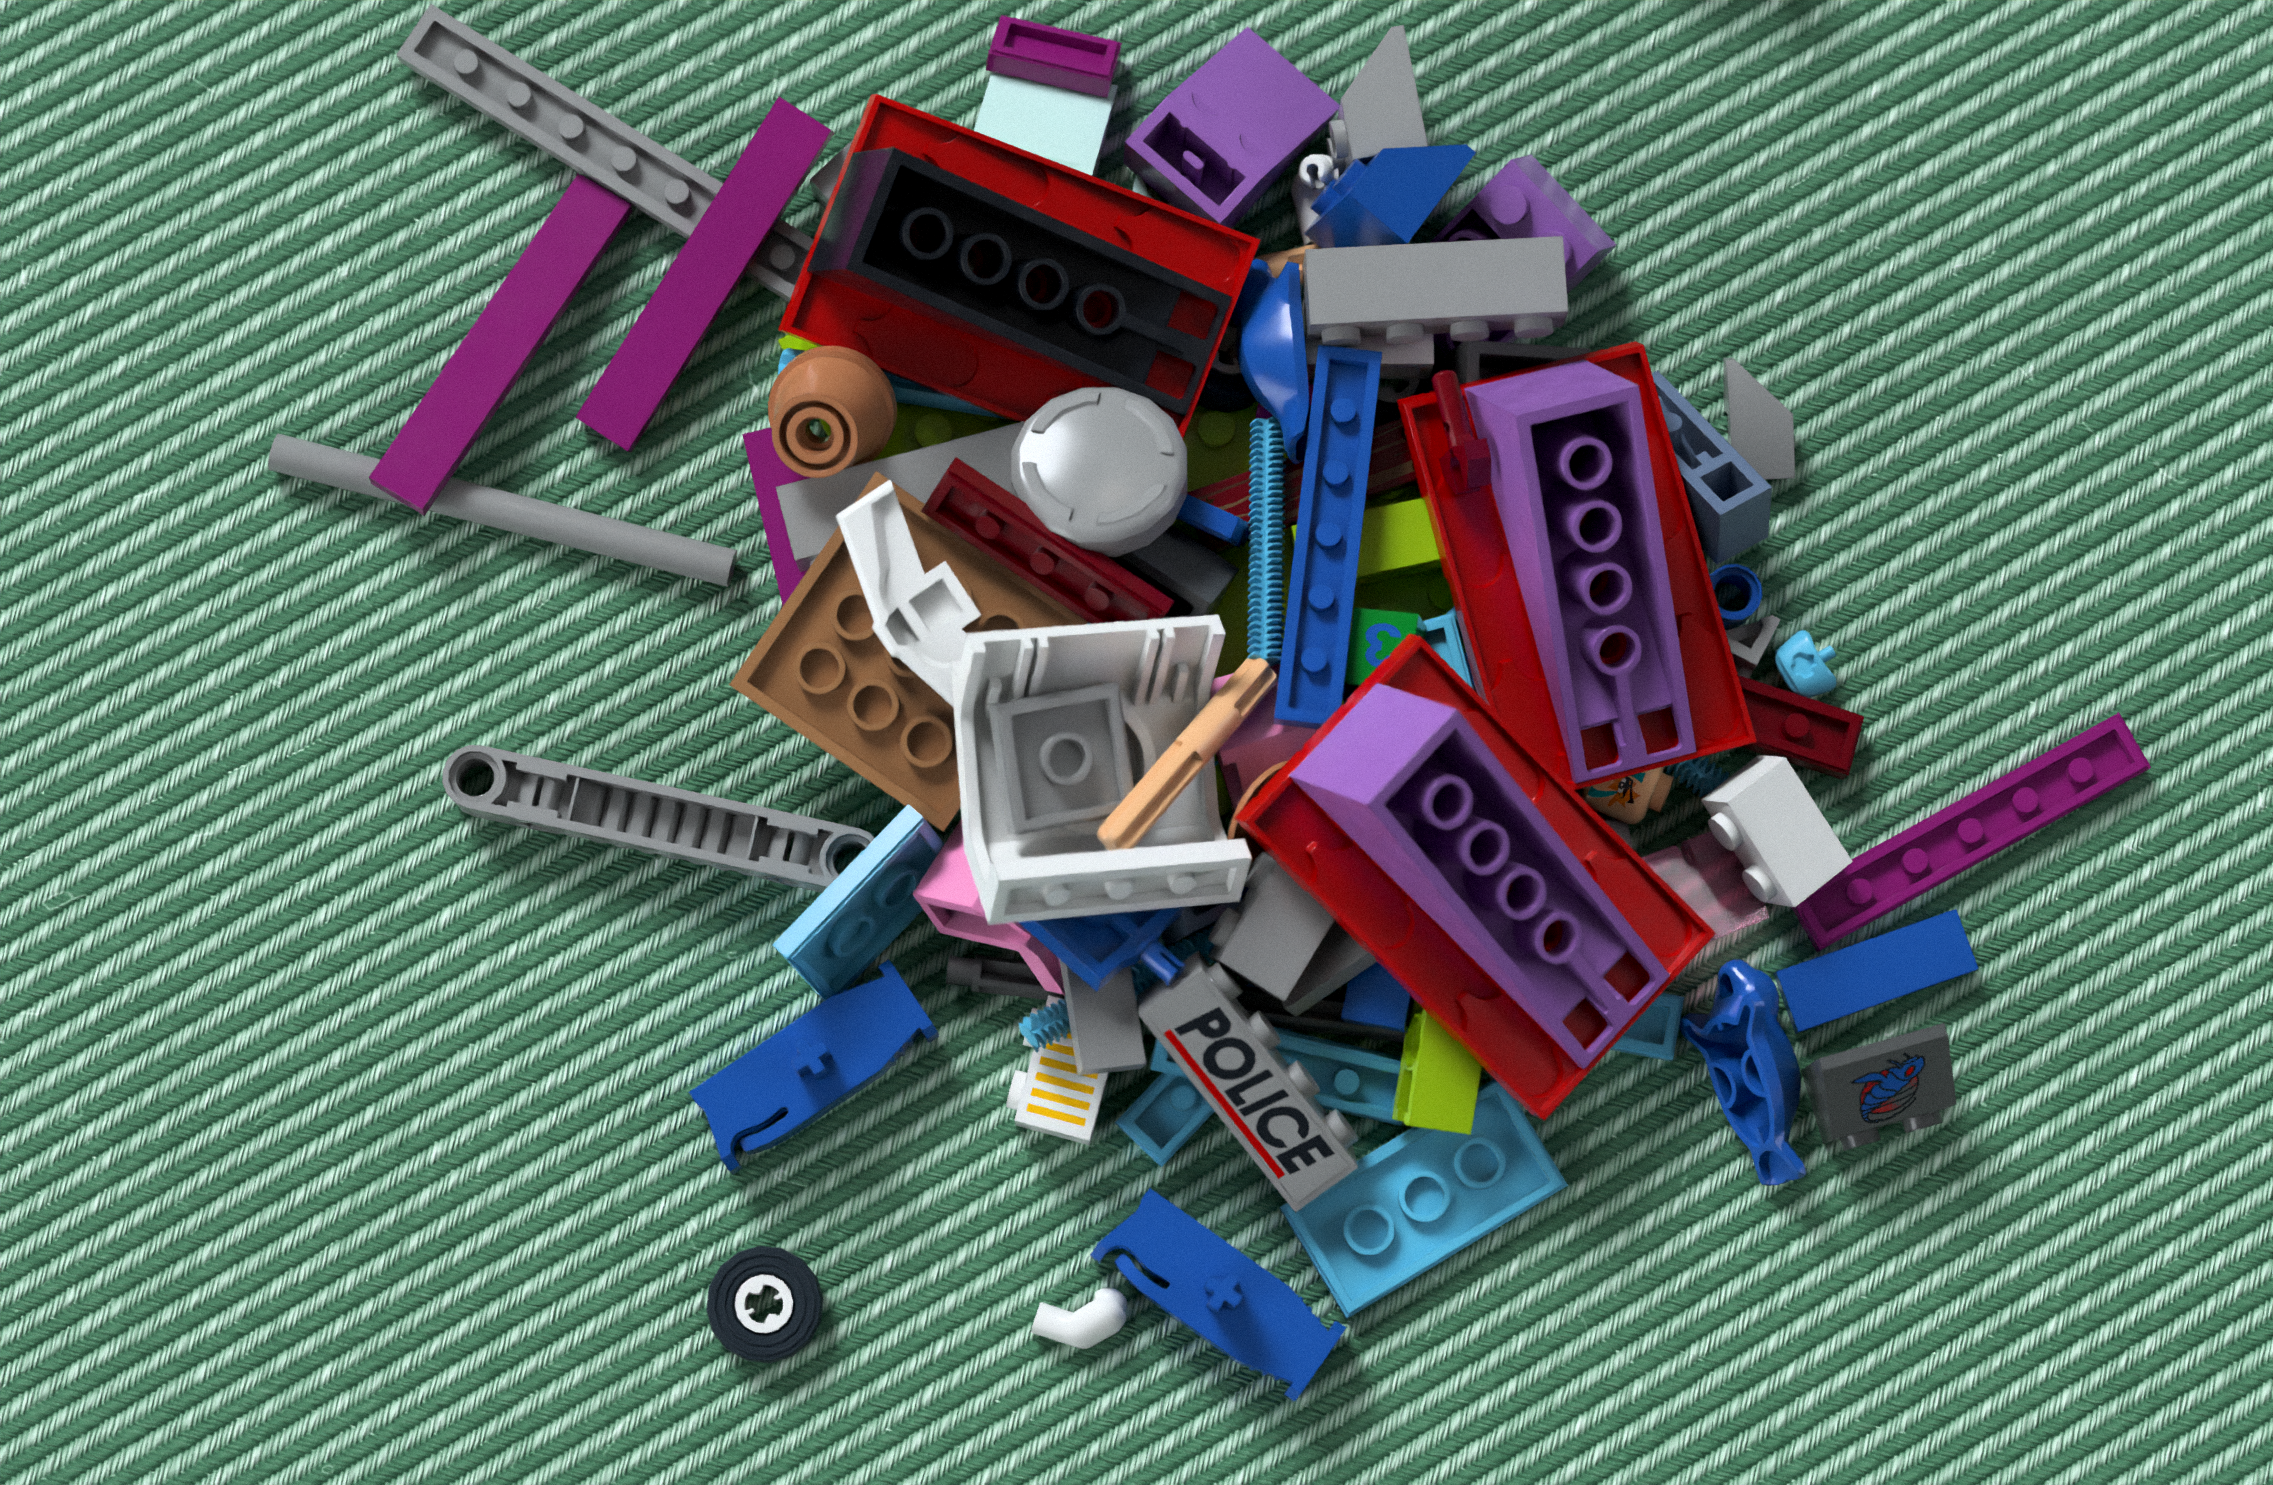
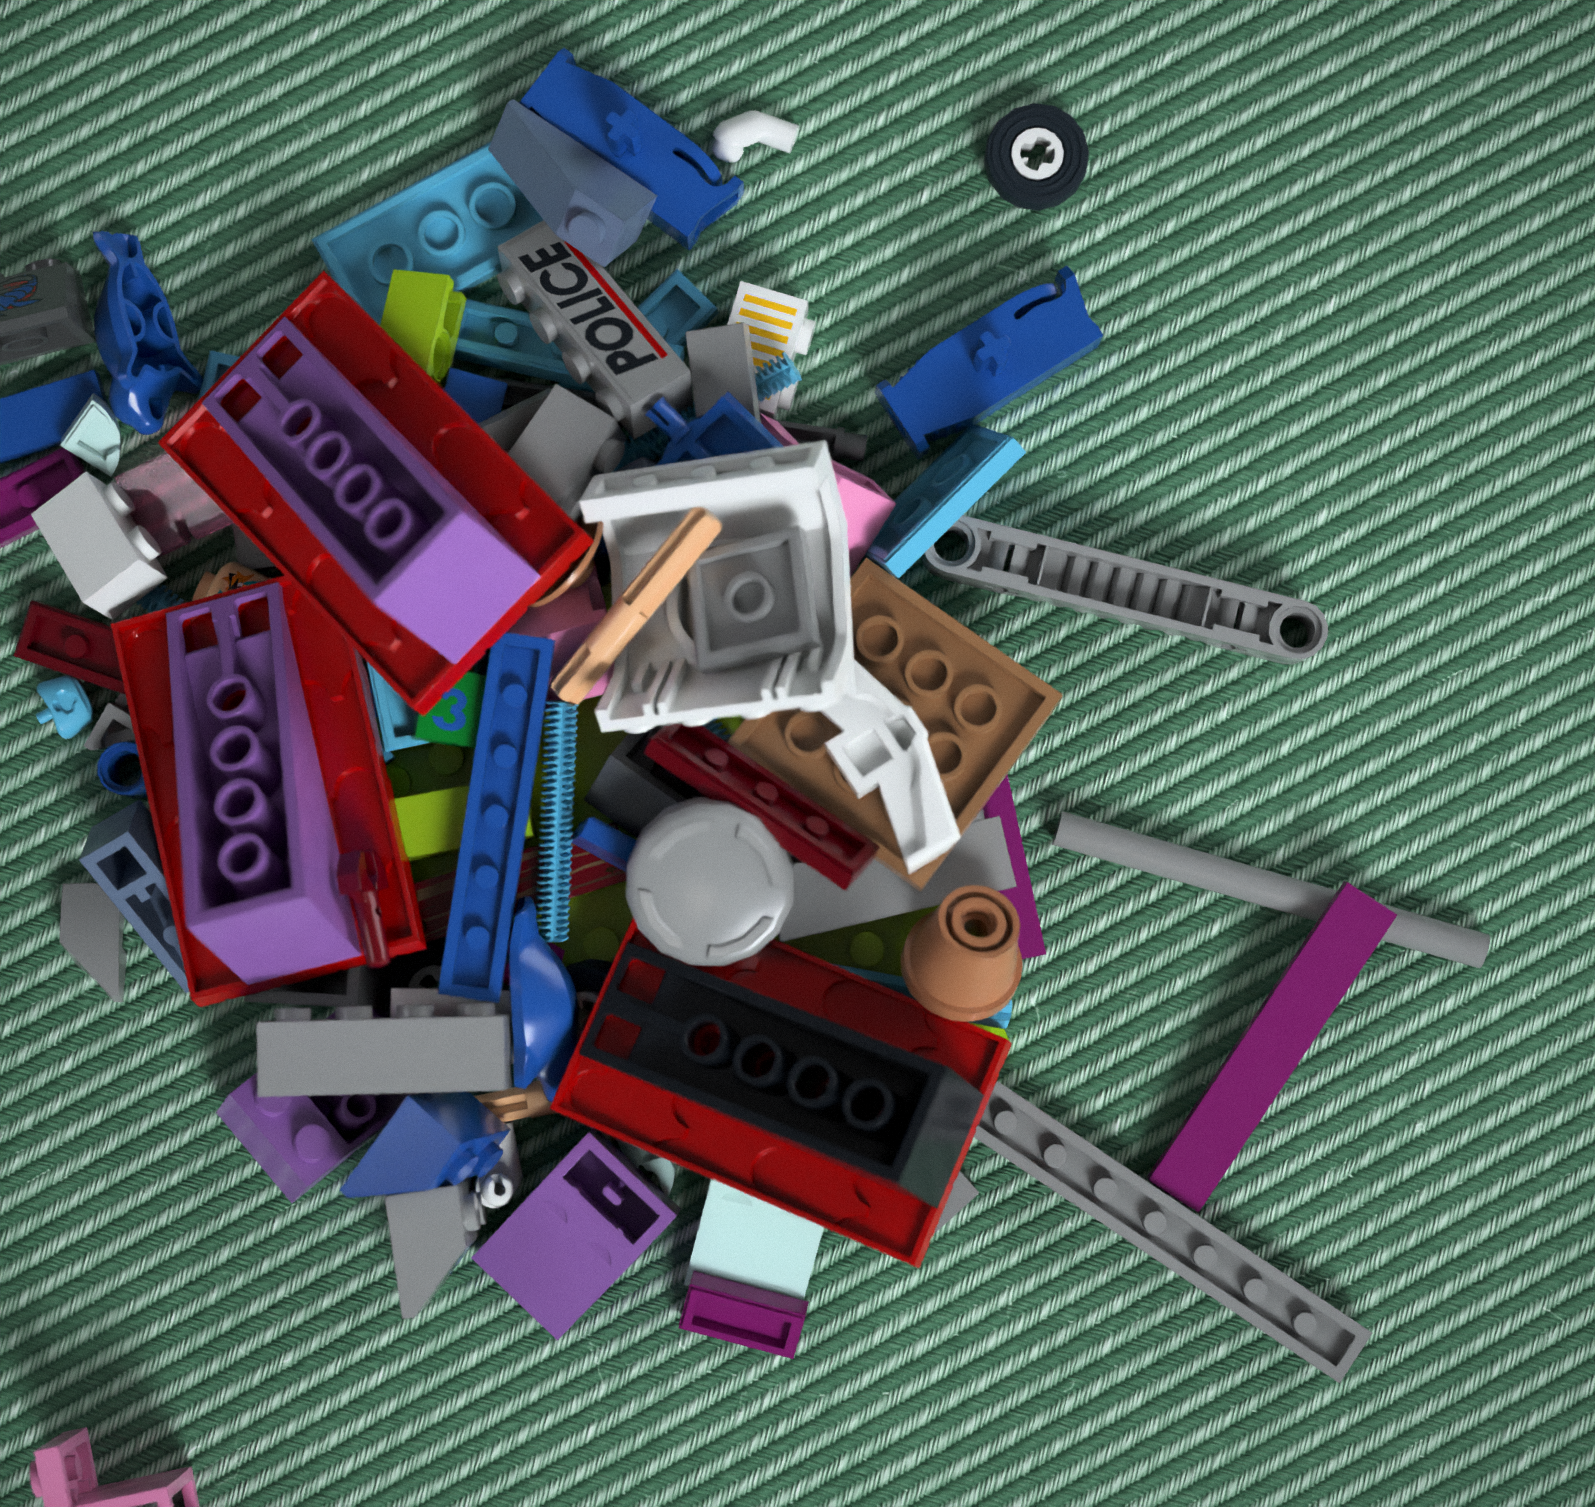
camera: 175 degrees left, 5 degrees up
(705, 274) = (1078, 1107): magenta tile -> none
(1278, 1234) = (571, 186): none -> sand blue slope
(1792, 956) = (95, 436): none -> light aqua tile

